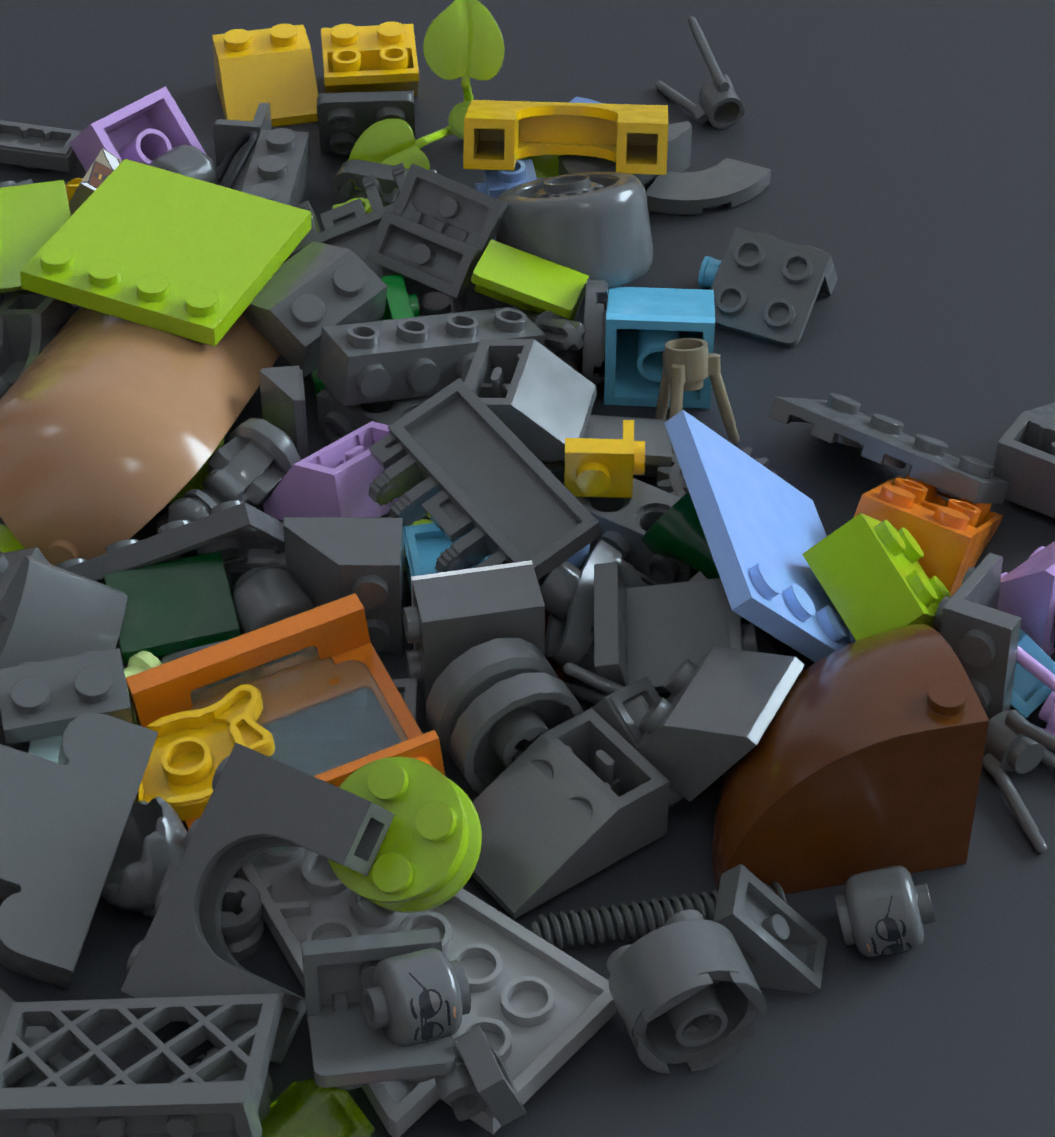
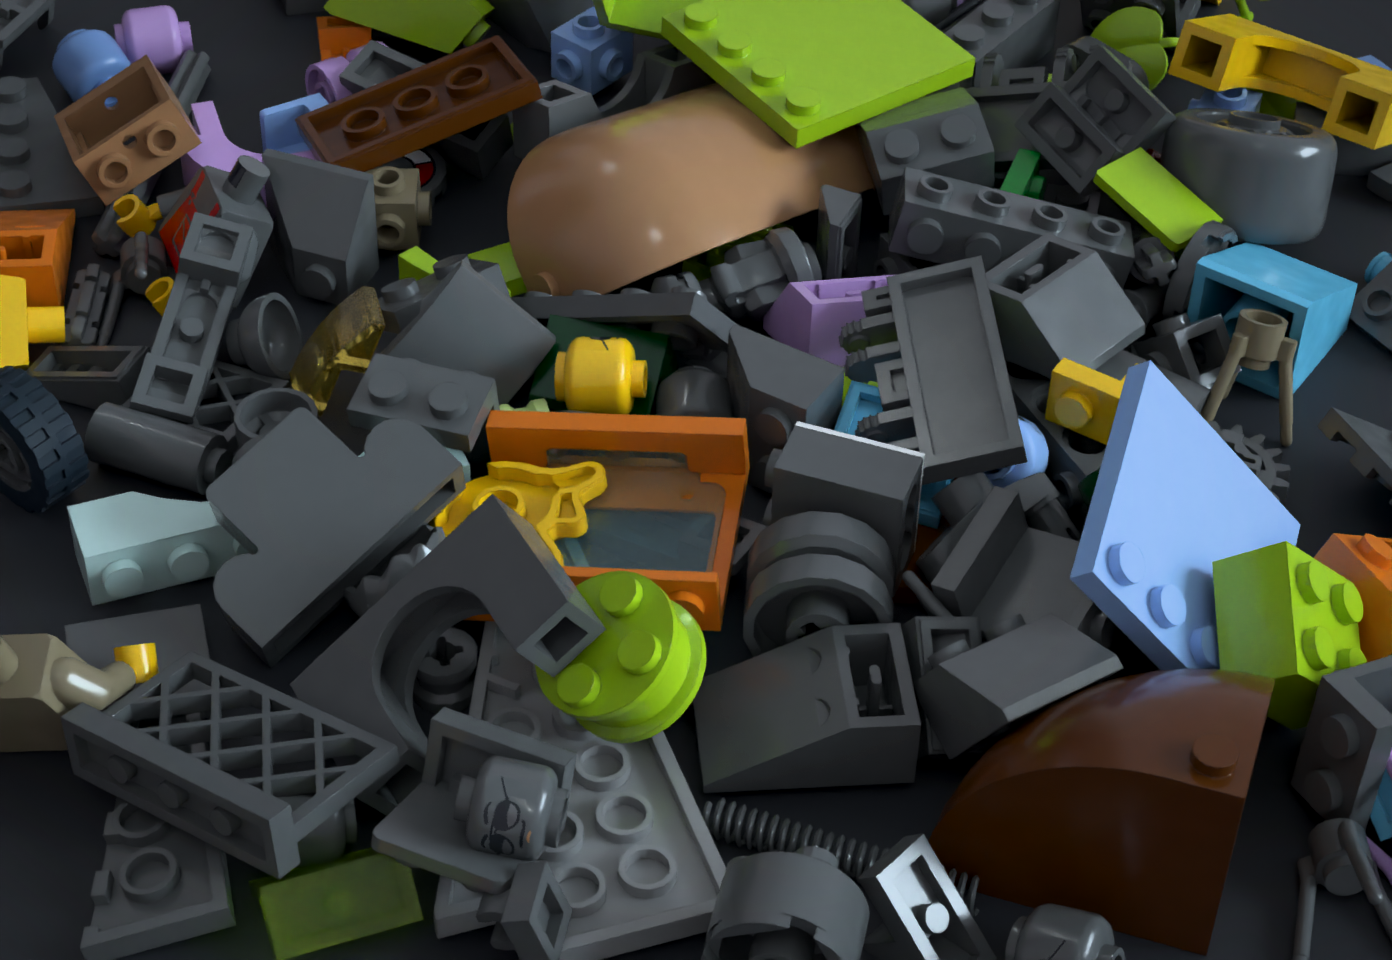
camera: 30 degrees right, 0 degrees up
(187, 611) = (600, 375): none -> yellow head
(619, 395) = (1188, 348): none -> dark grey brick

